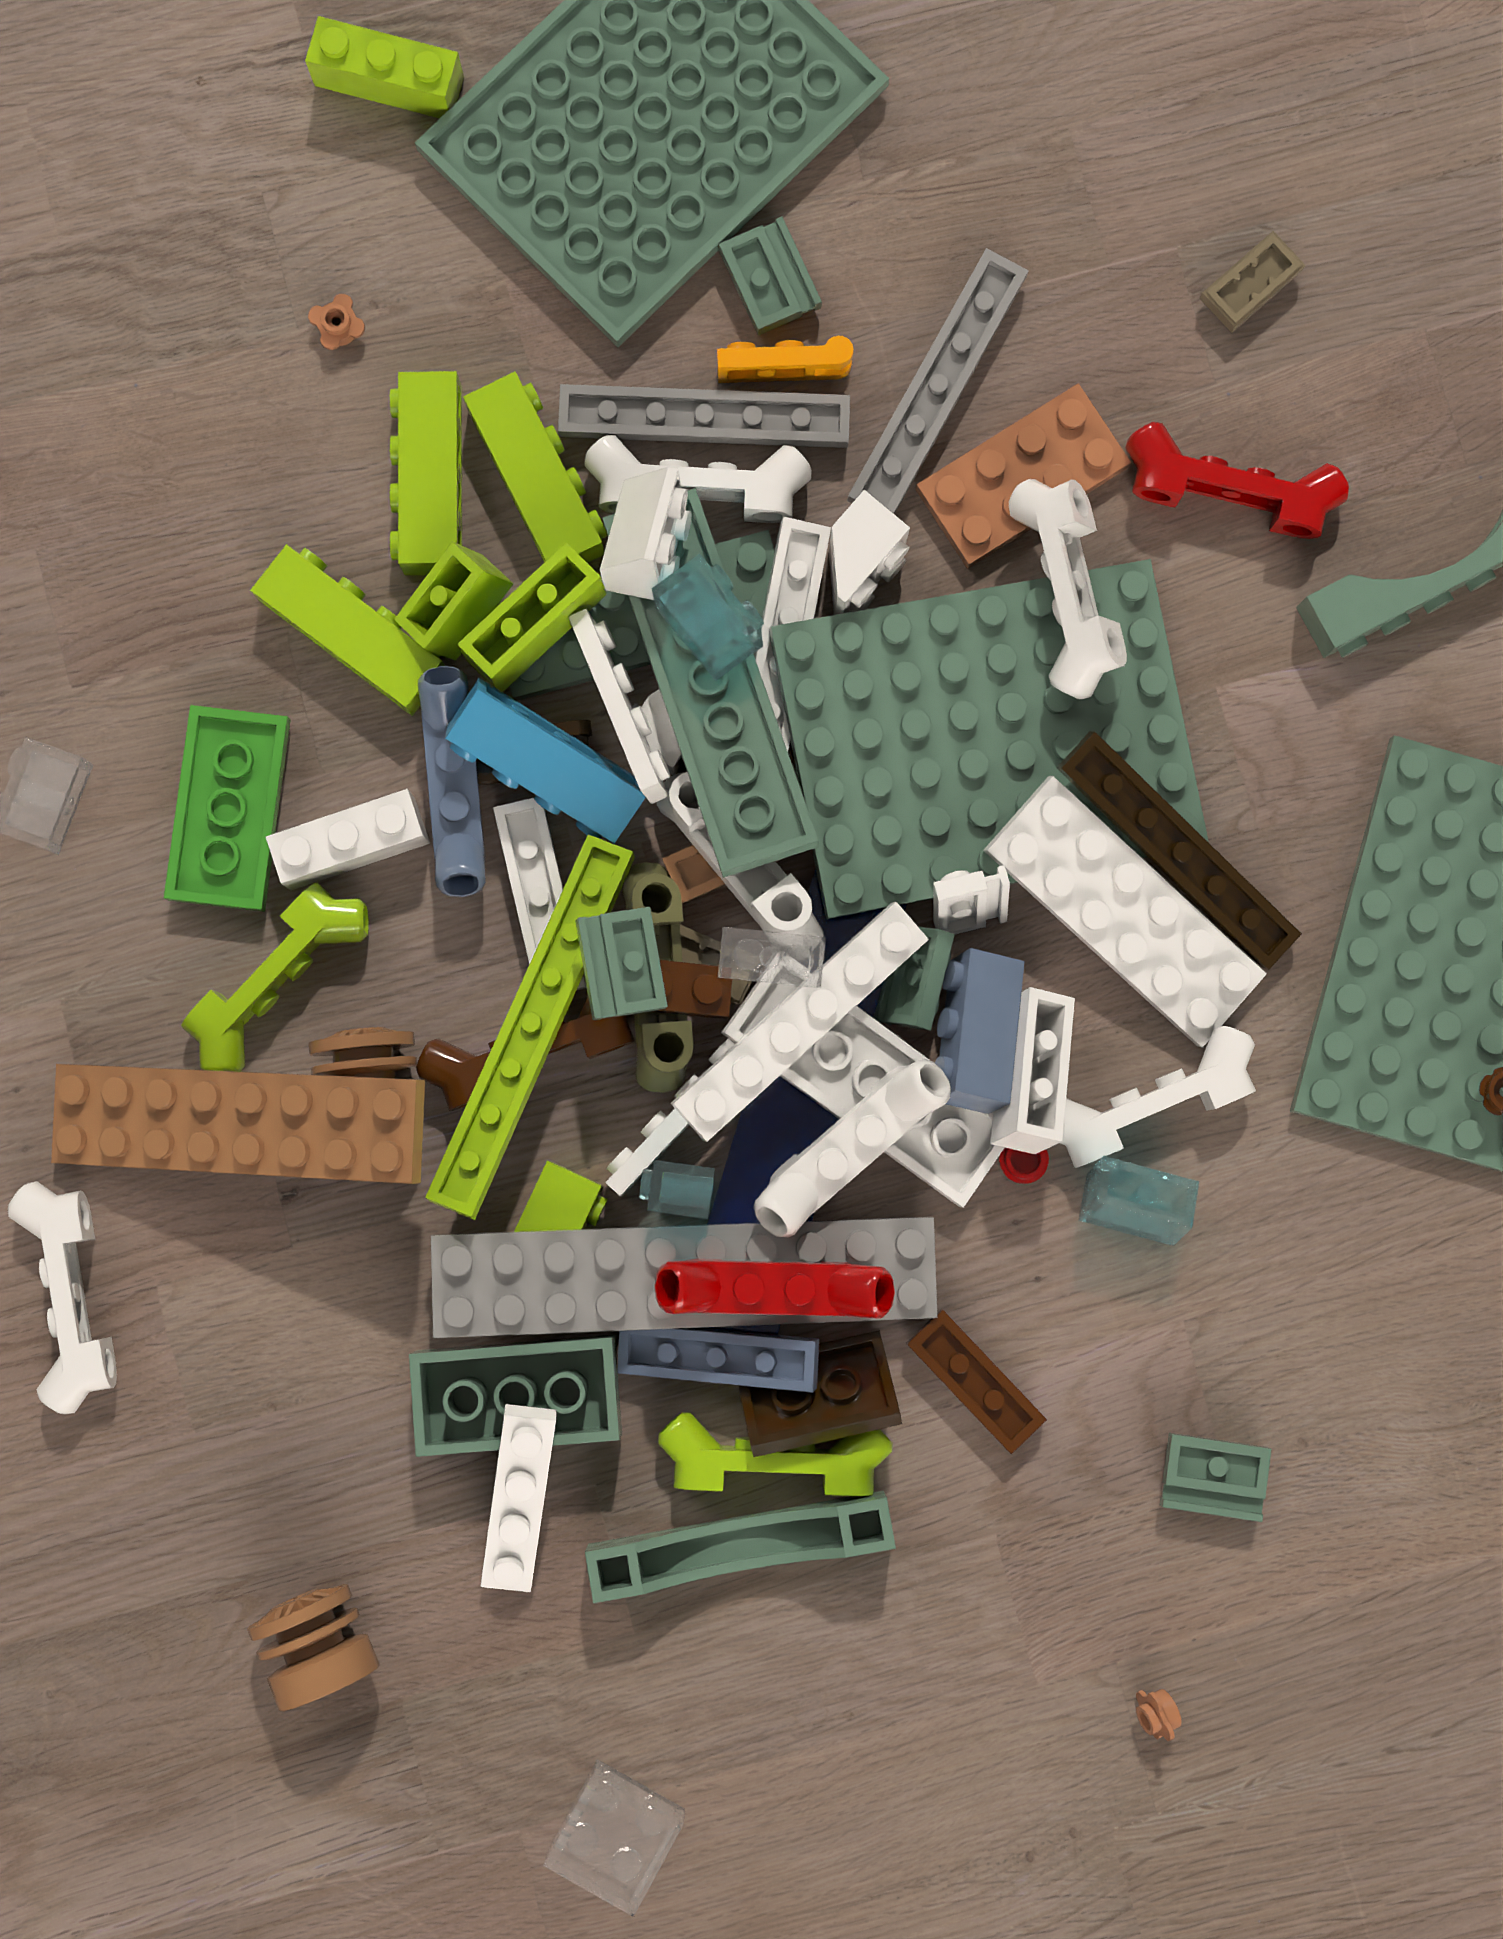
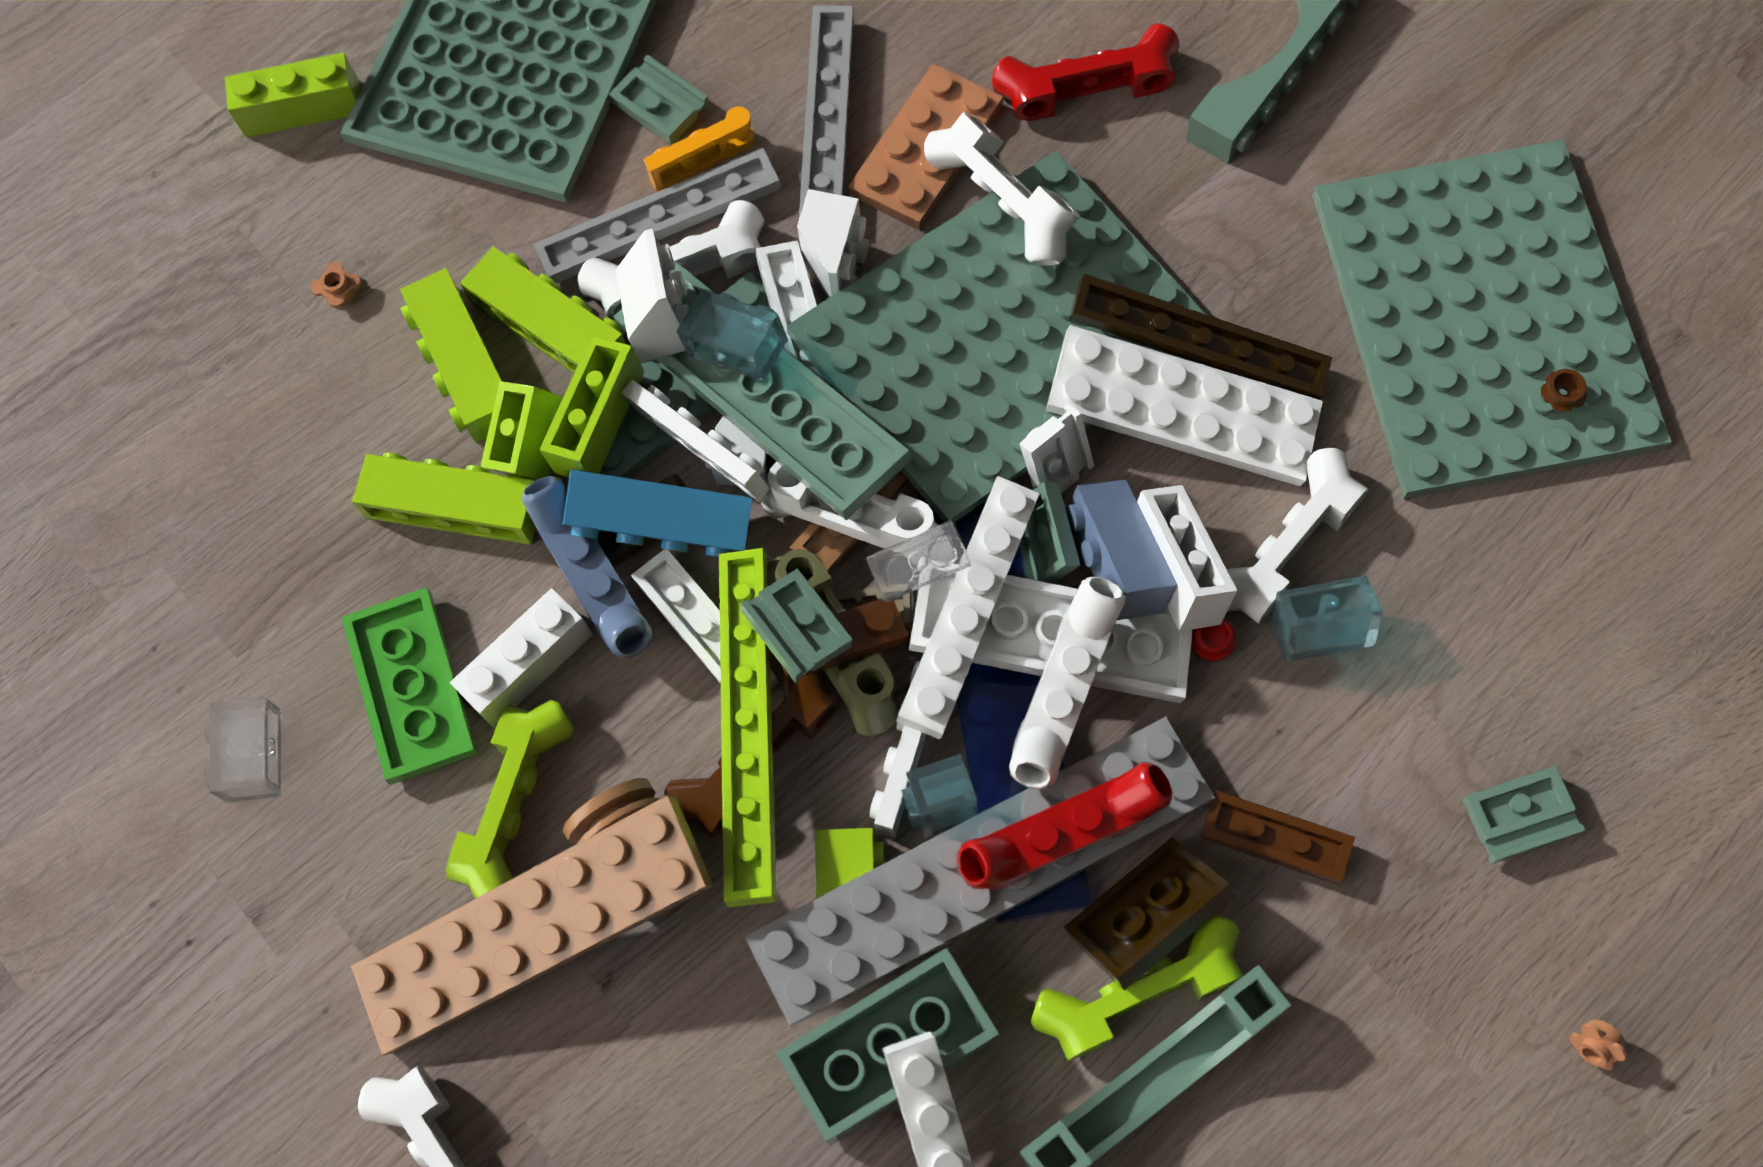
camera: 15 degrees left, 15 degrees down
(721, 1357) = (1047, 923): sand blue plate -> none

